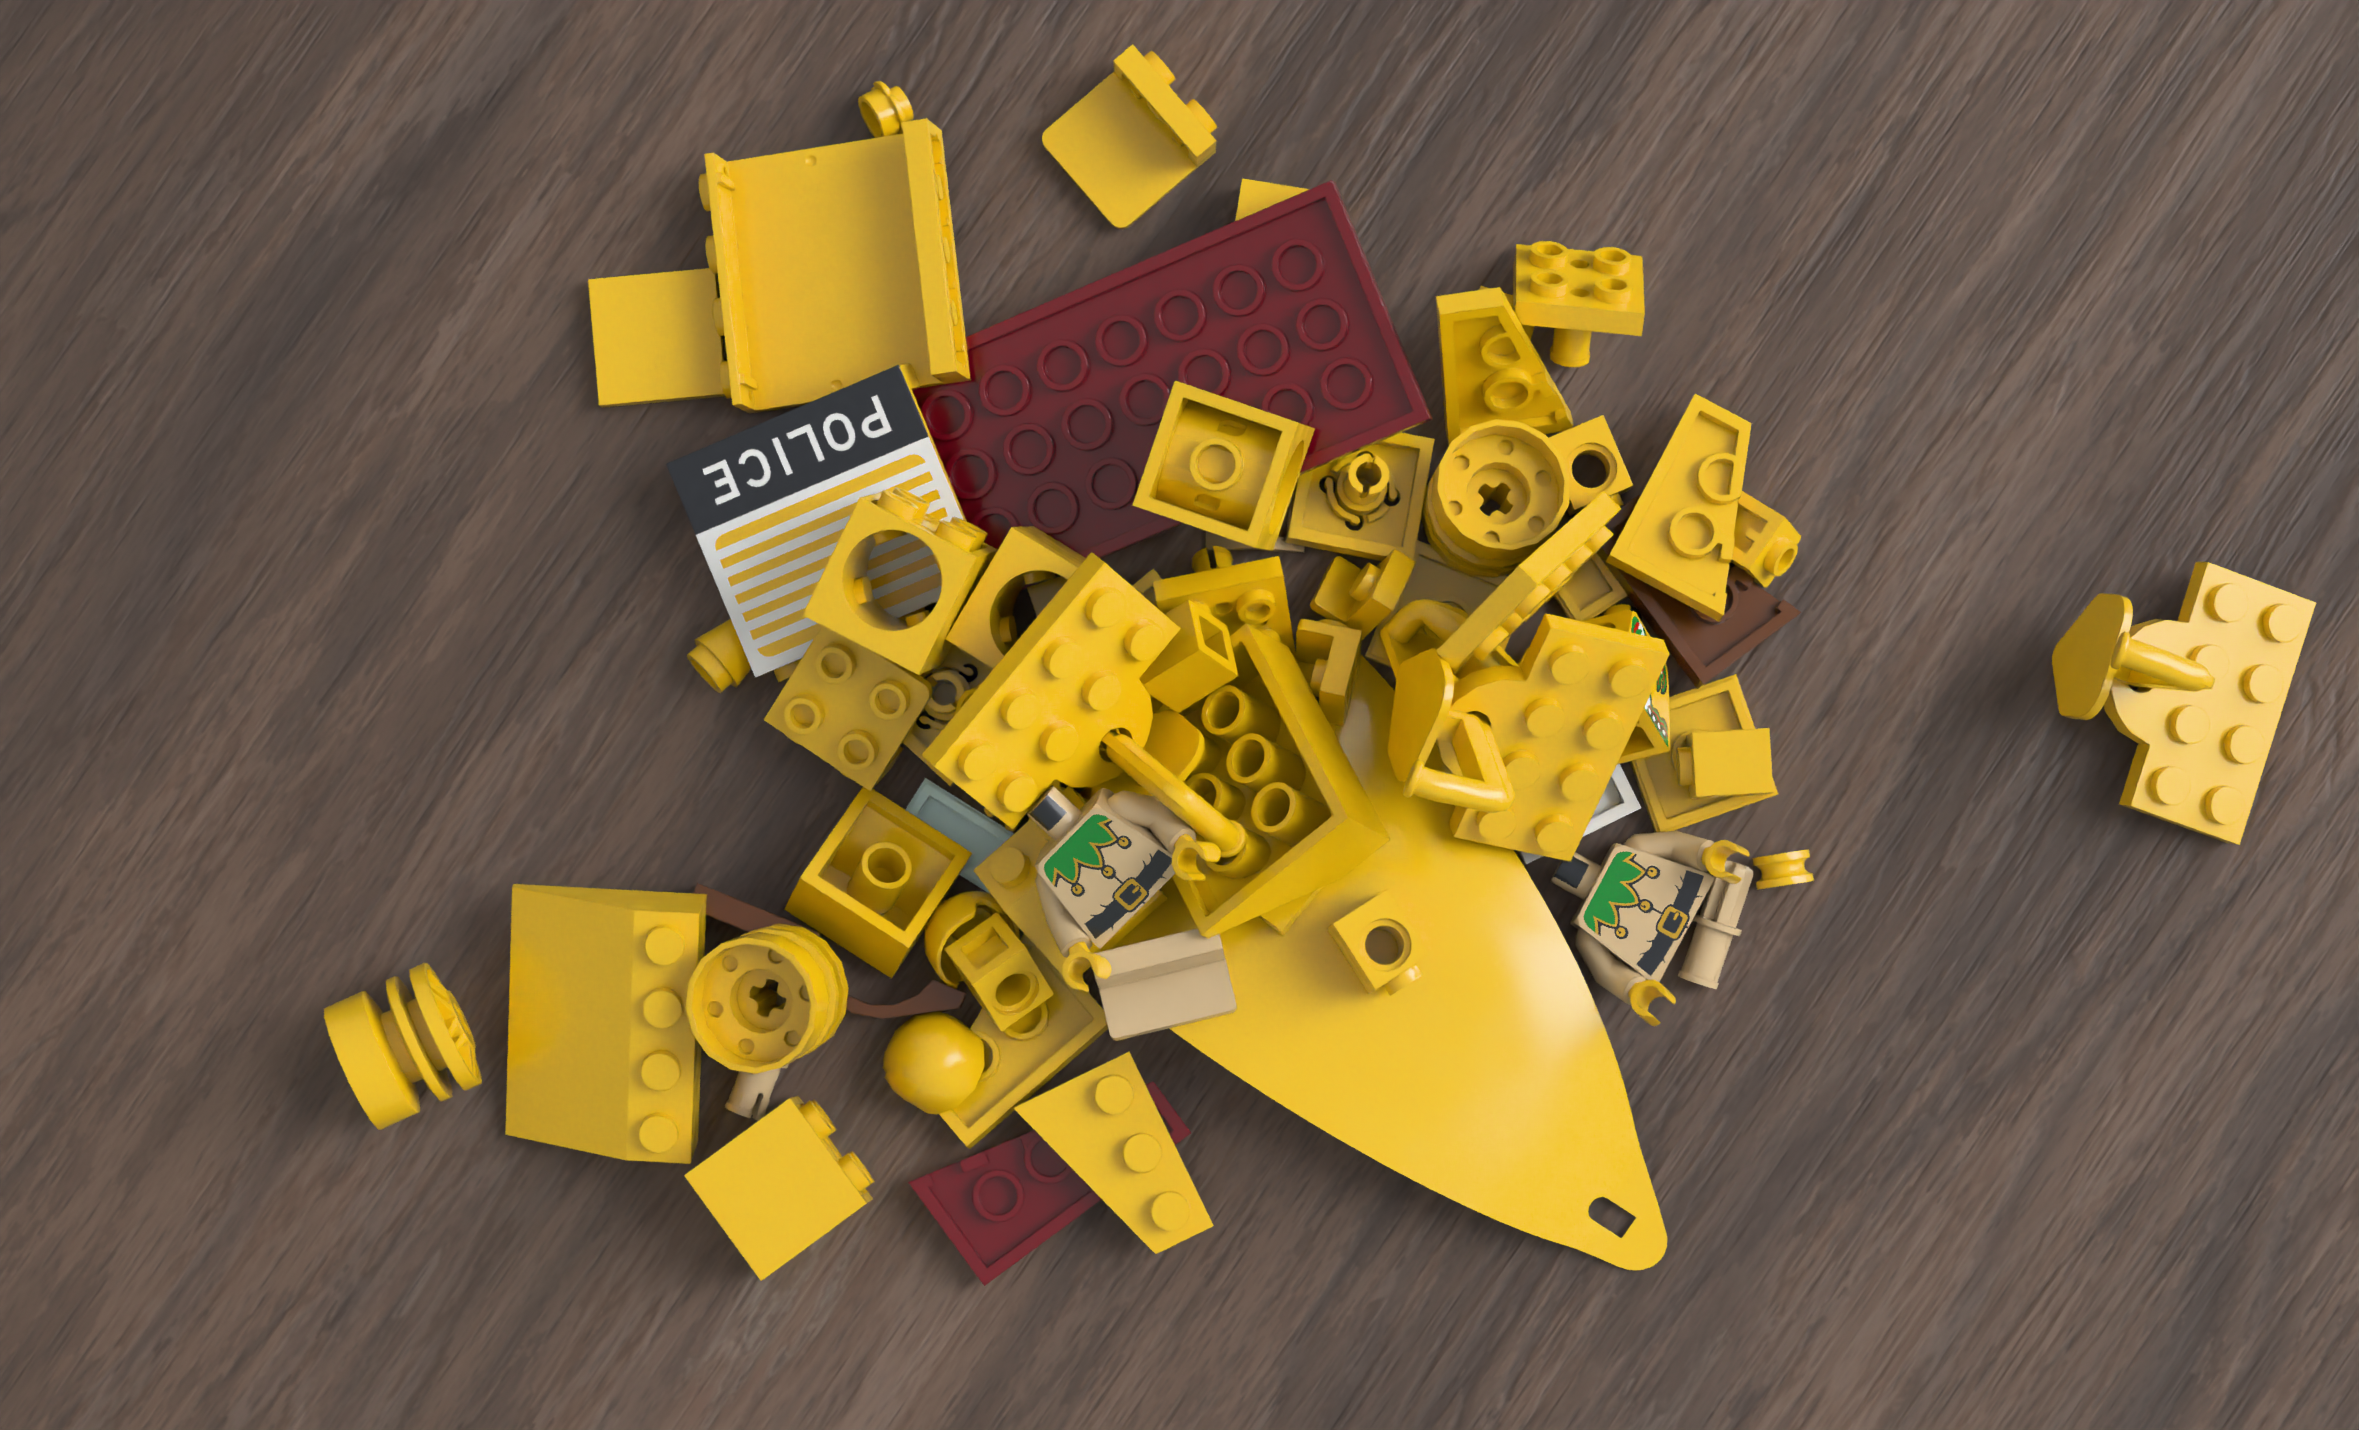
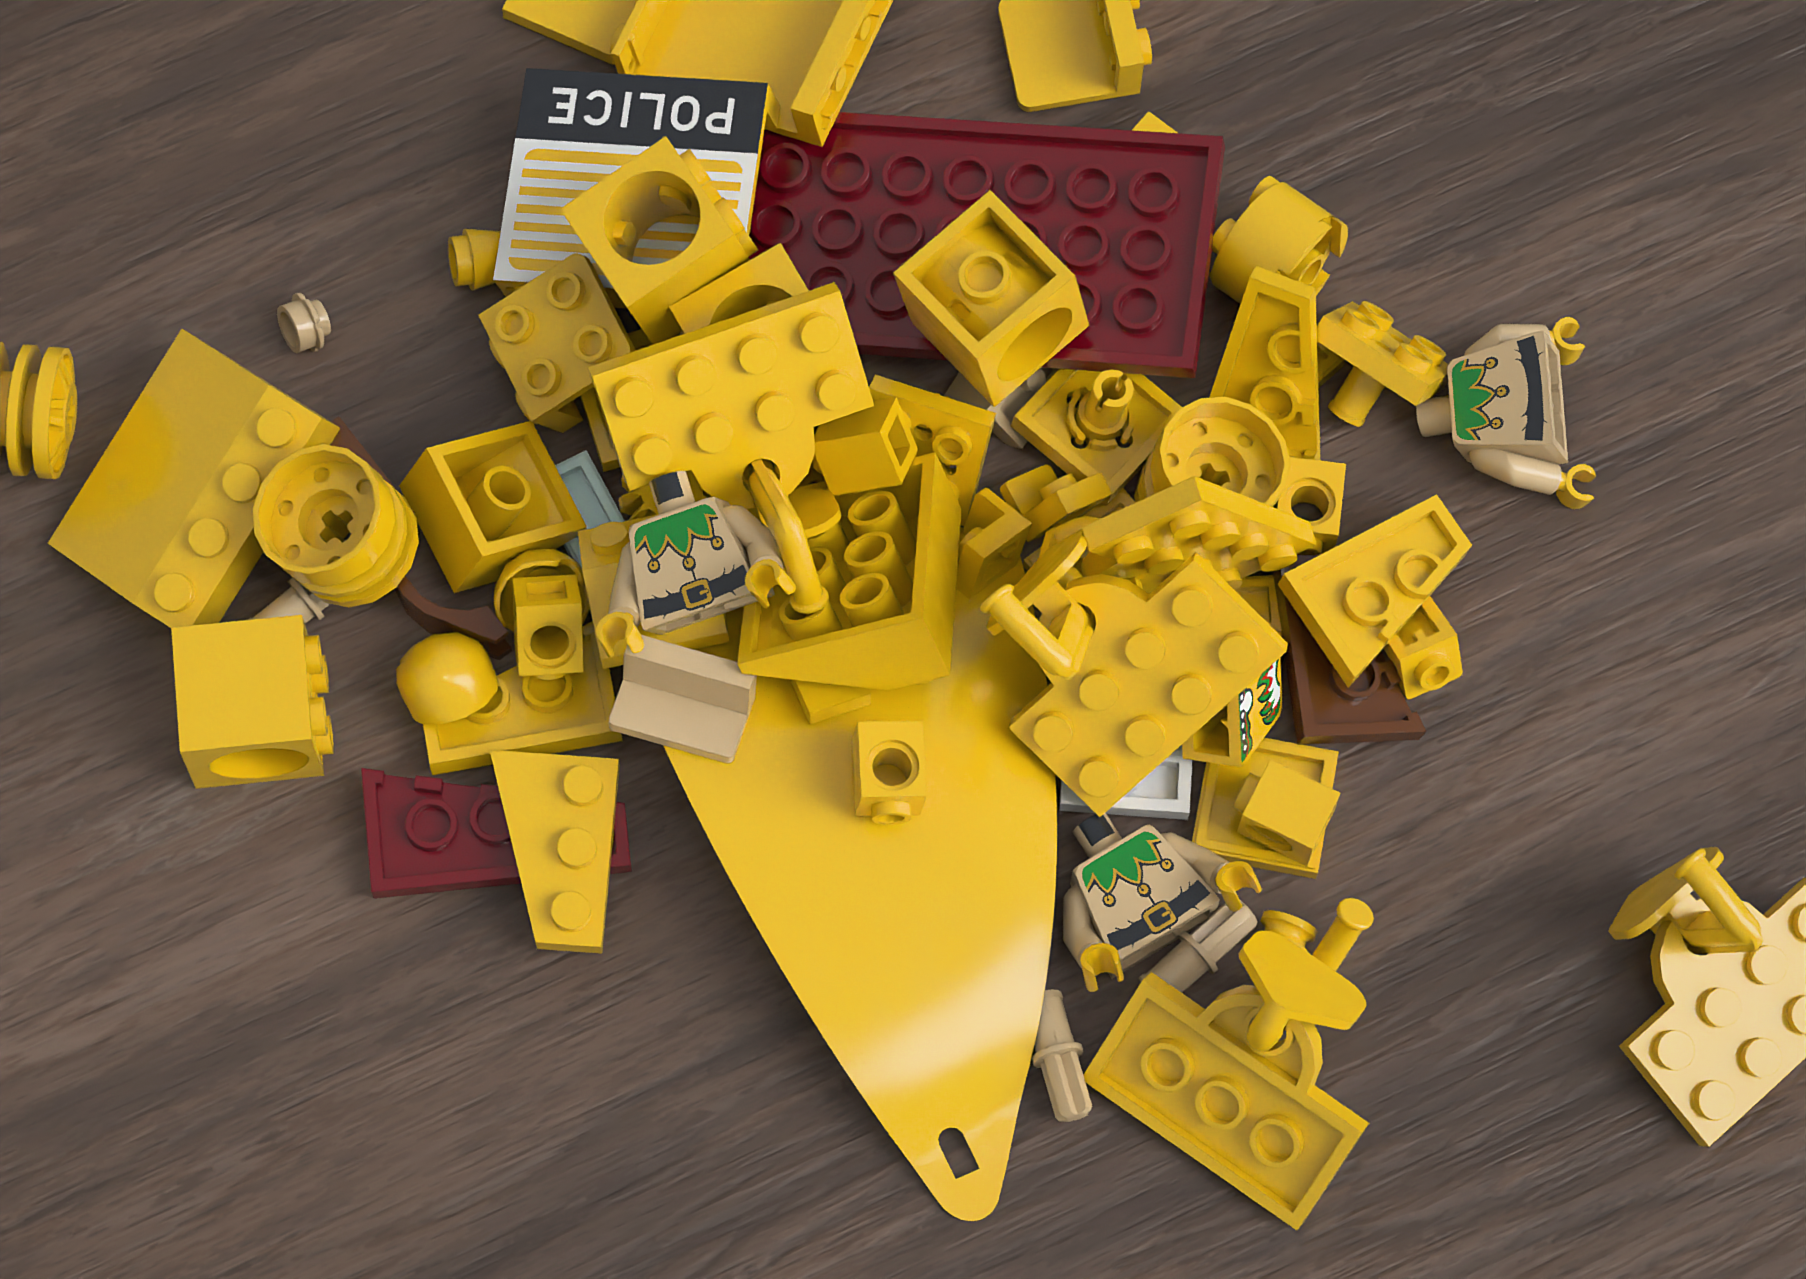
camera: 30 degrees right, 15 degrees down
(606, 805) = (303, 323): none -> tan plate
(1430, 245) = (1277, 233): none -> yellow brick
(1654, 1090) = (1059, 1061): none -> tan axle
(1714, 272) = (1510, 408): none -> tan torso
(1829, 1037) = (1225, 1082): none -> yellow plate

